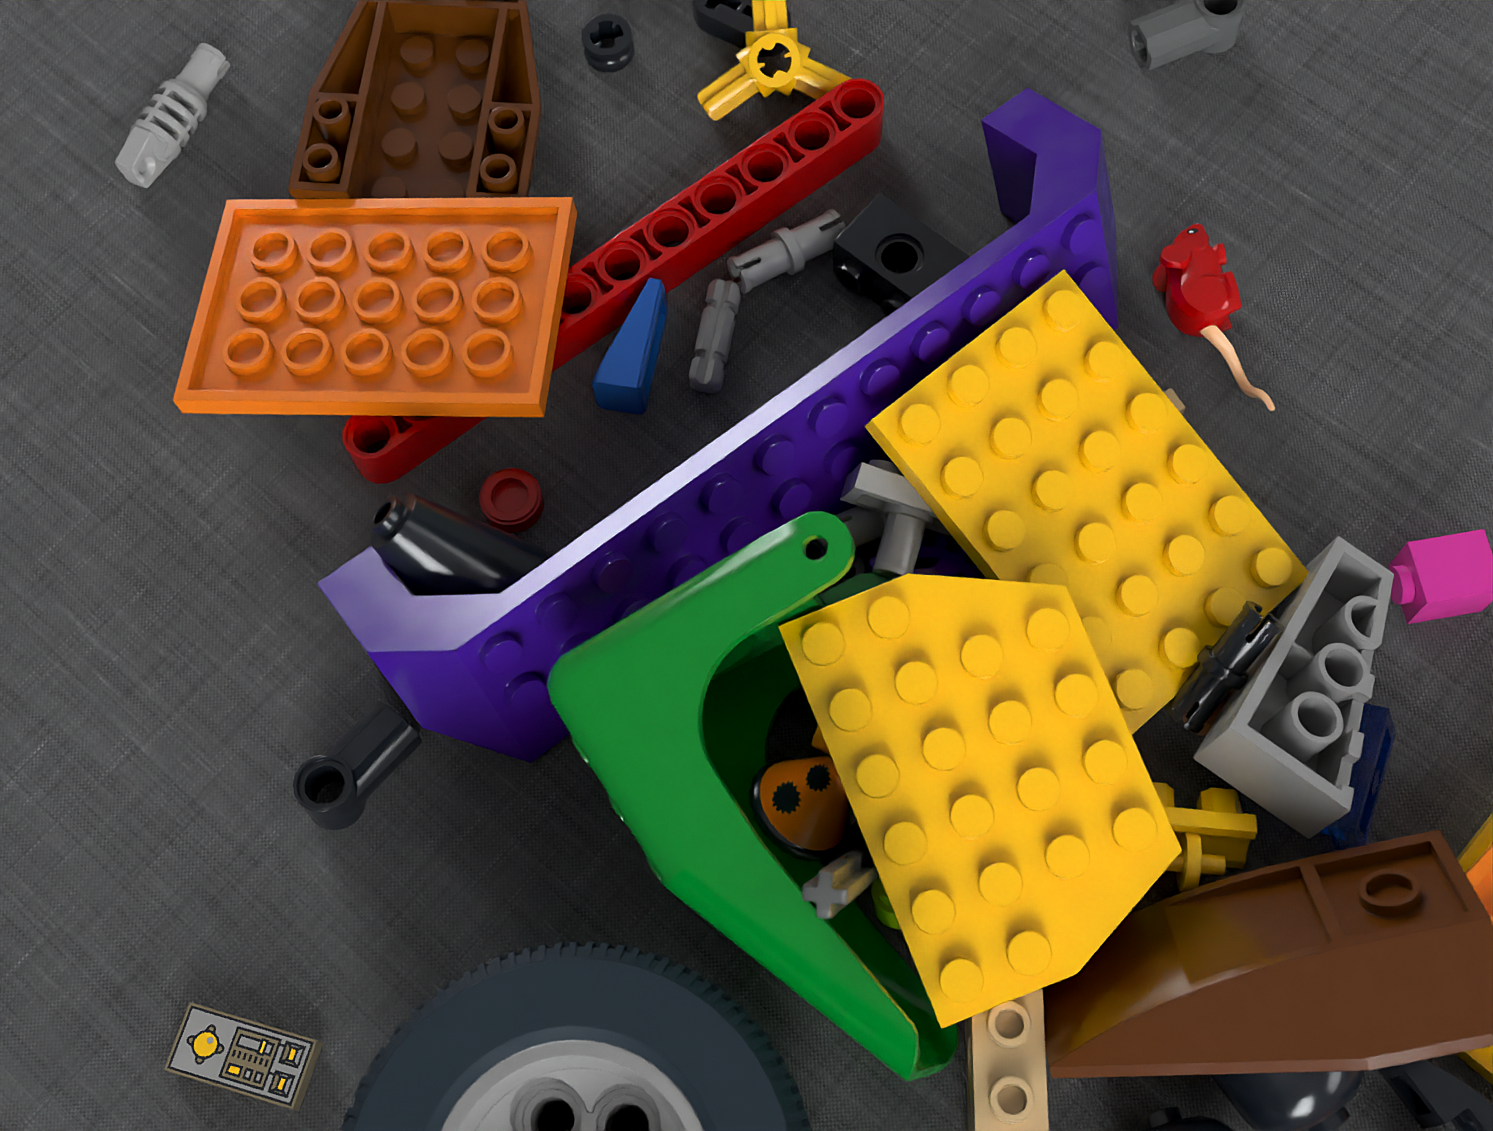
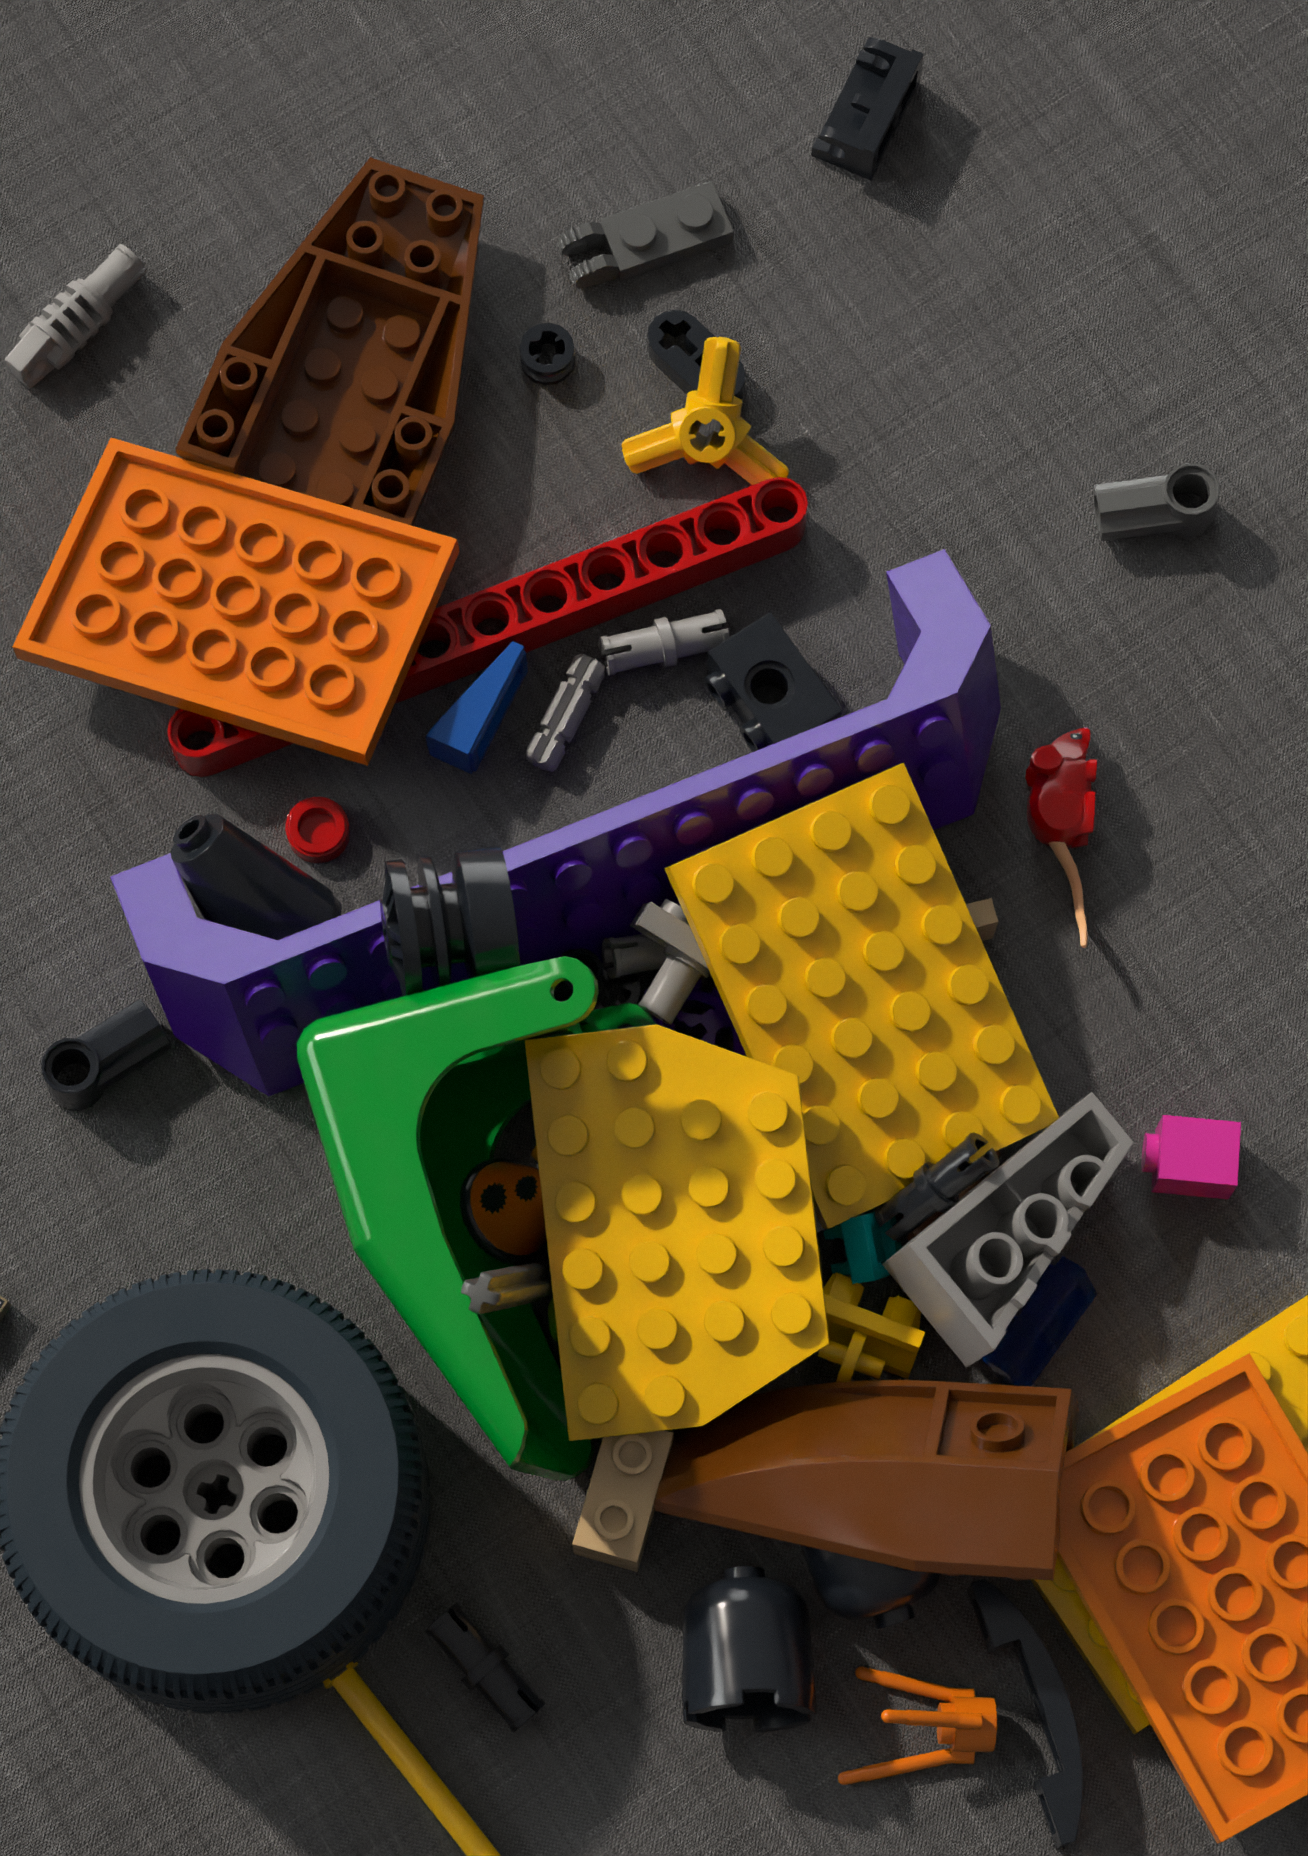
camera: 10 degrees right, 5 degrees up
(663, 525) = (449, 921): none -> black wheel
(1169, 748) = (865, 1247): none -> teal tile

